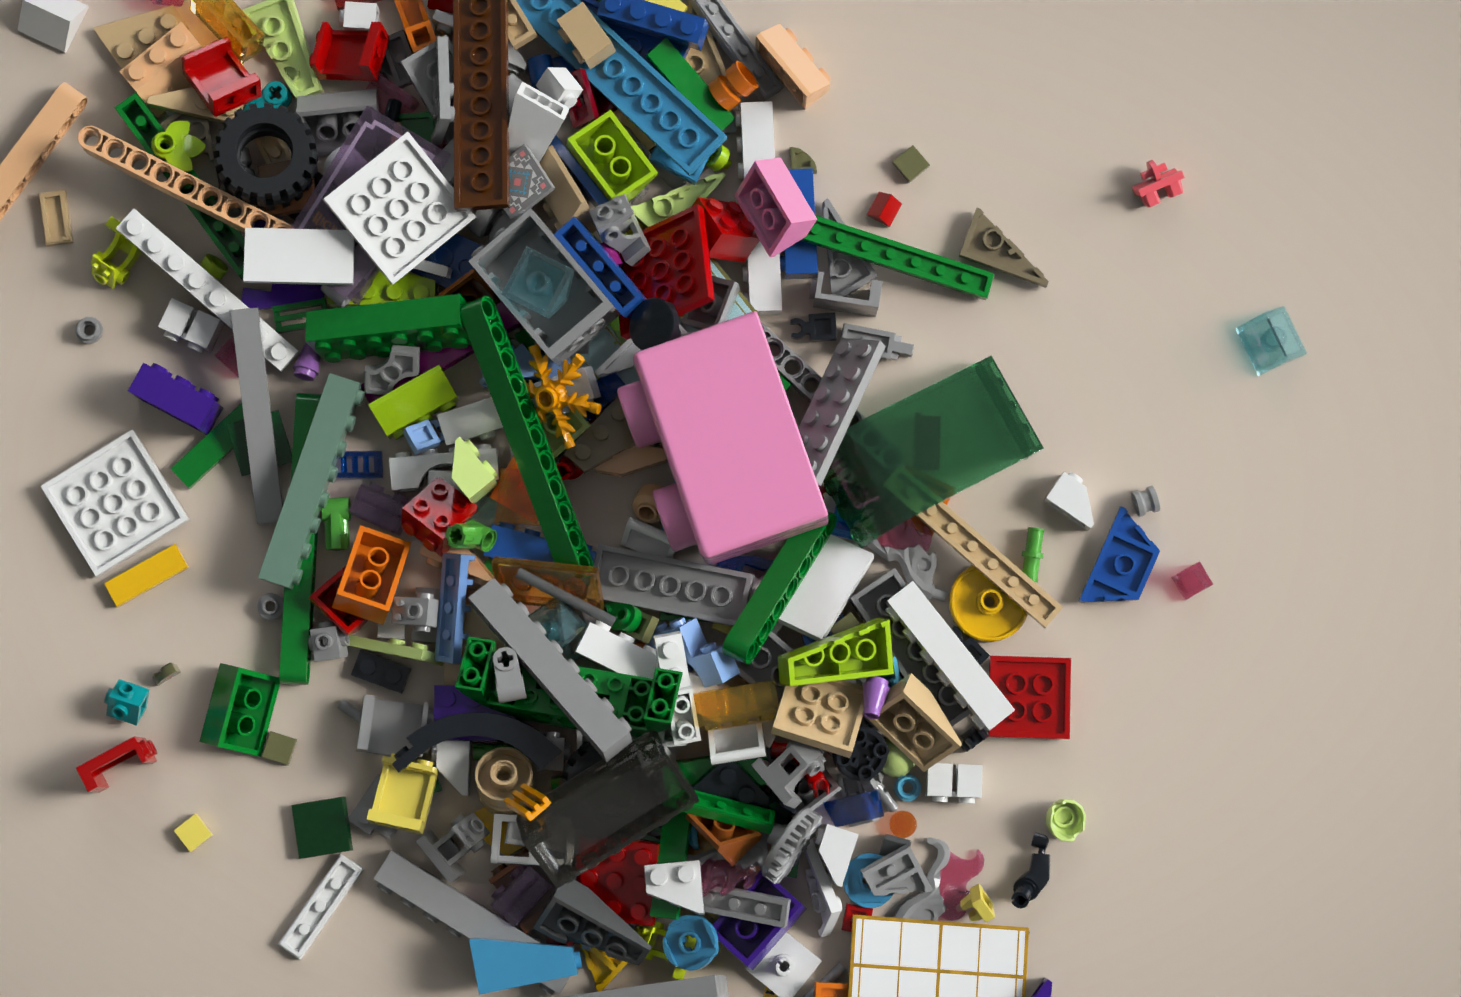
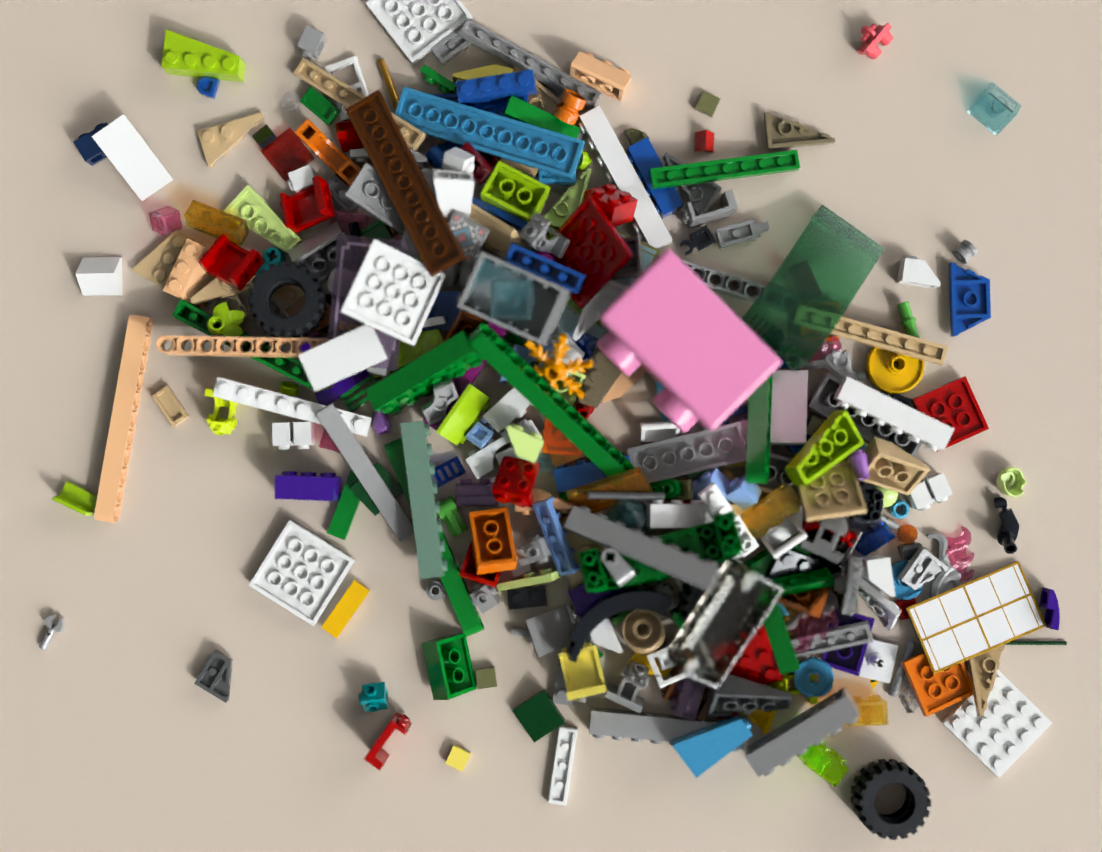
camera: 20 degrees left, 5 degrees up
(81, 328) = (223, 468): light grey plate -> none
(166, 673) = (389, 665): olive tile -> none
(442, 92) = (382, 202): light grey wing -> none
(471, 536) = (545, 484): bright green piece -> none
(522, 797) = (661, 640): light orange tile -> none
(585, 35) = (458, 119): tan brick -> none
(644, 504) = (645, 407): light nougat head -> none
(654, 323) = (600, 289): black tile -> none
(676, 883) = (790, 647): white wing -> none
(774, 205) = (637, 173): bright pink slope -> none
(837, 400) = (740, 278): light grey plate -> none
(972, 738) = (928, 457): black plate -> none
(980, 902) = (981, 563): light yellow tile -> none
(1192, 580) = (1018, 288): clear pink panel -> none

